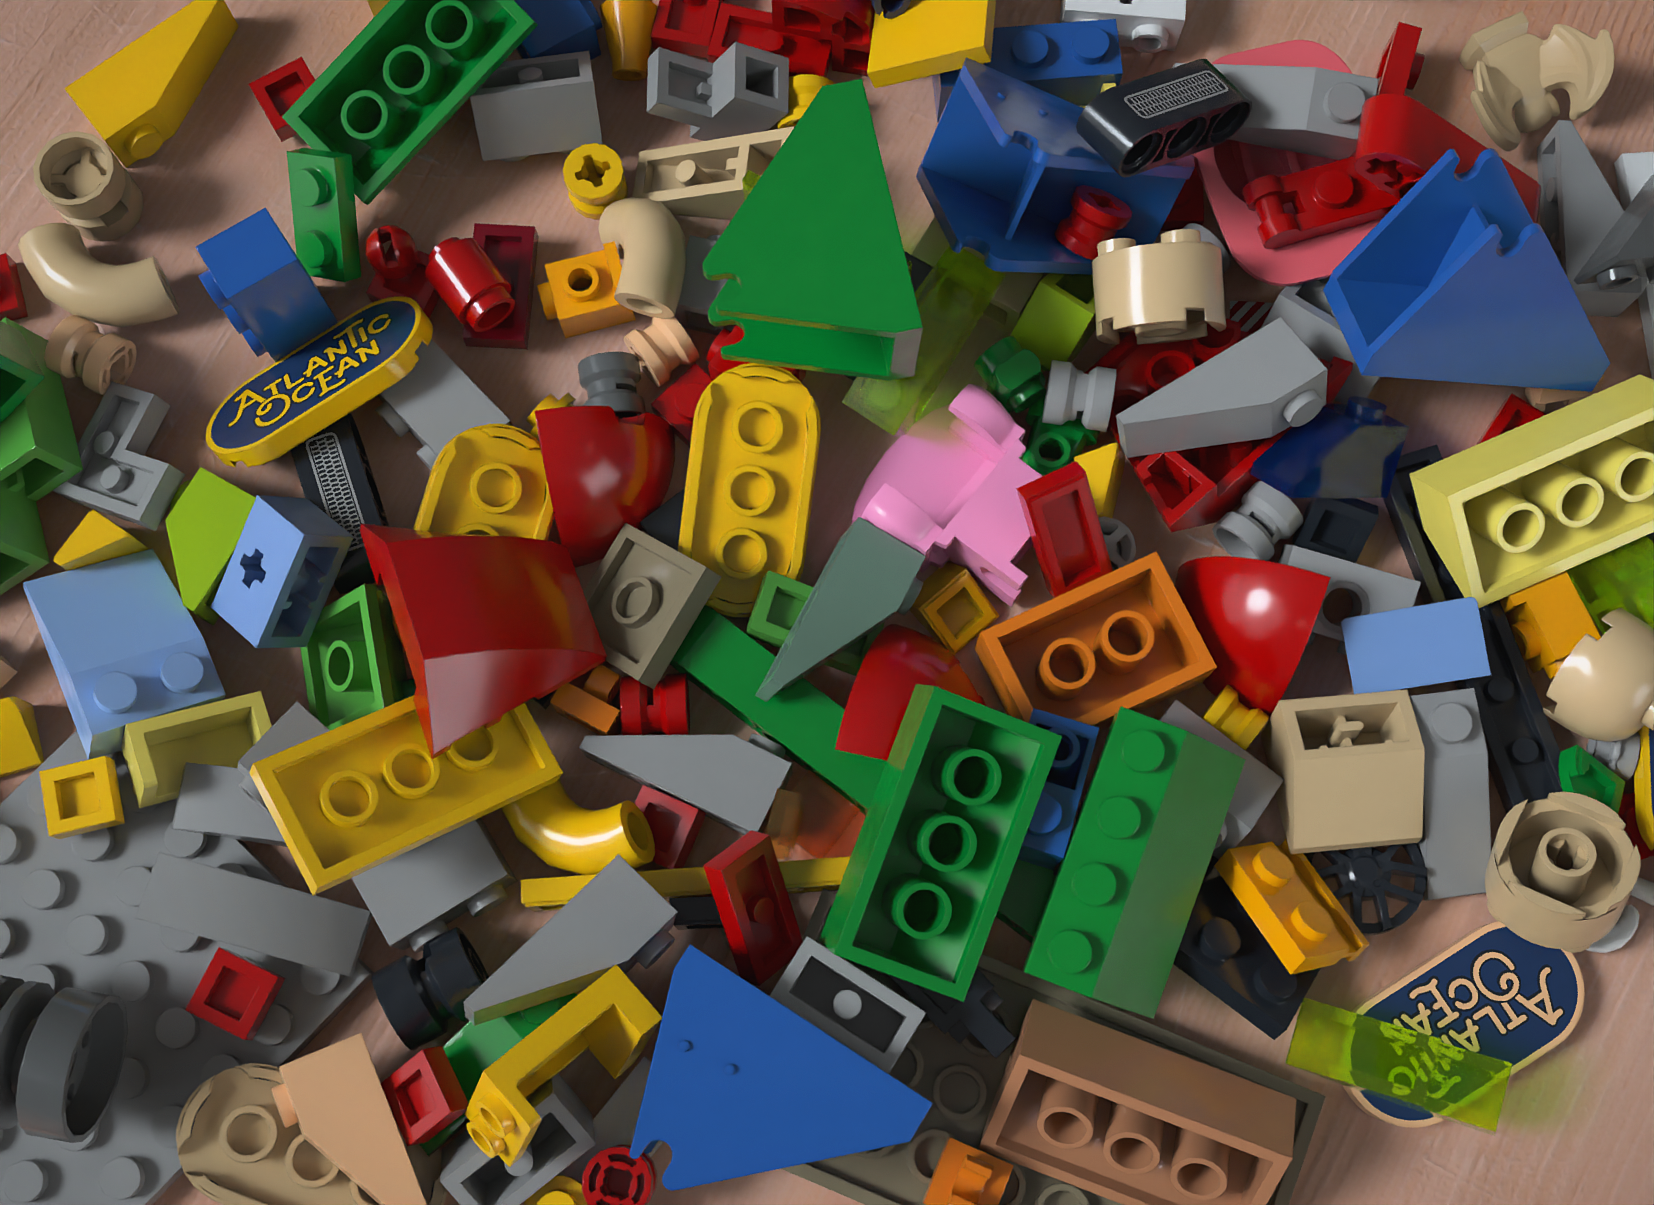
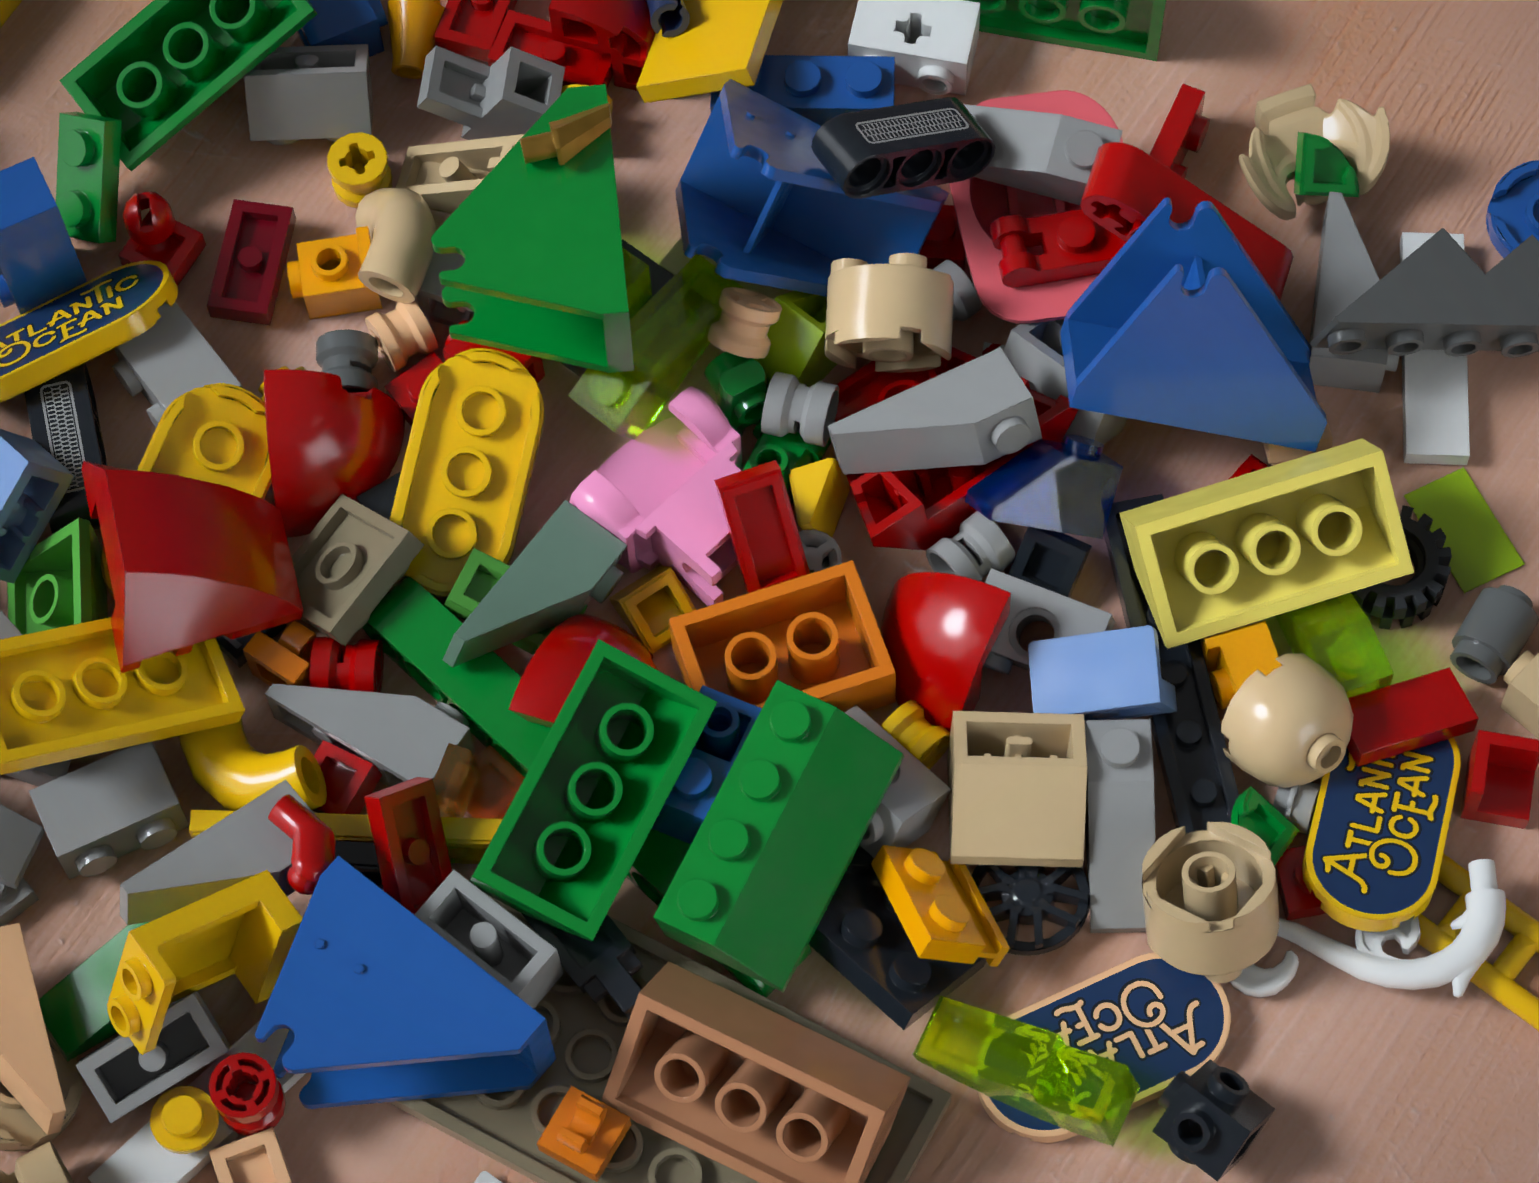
camera: 10 degrees right, 10 degrees down
(279, 91) = (59, 58): red plate -> none
(424, 1095) = (71, 987): red plate -> none
(429, 991) = (87, 907): black wheel -> none
(470, 283) = (220, 253): red brick -> none
(658, 926) = (312, 843): none -> red arm
(832, 140) = (567, 135): none -> pearl gold bar
(1013, 311) = (744, 322): none -> light nougat wheel
(1092, 220) = (838, 238): red wheel -> none
(1546, 96) = (1322, 168): none -> green tile
(1590, 1097) = (1211, 1118): none -> black brick

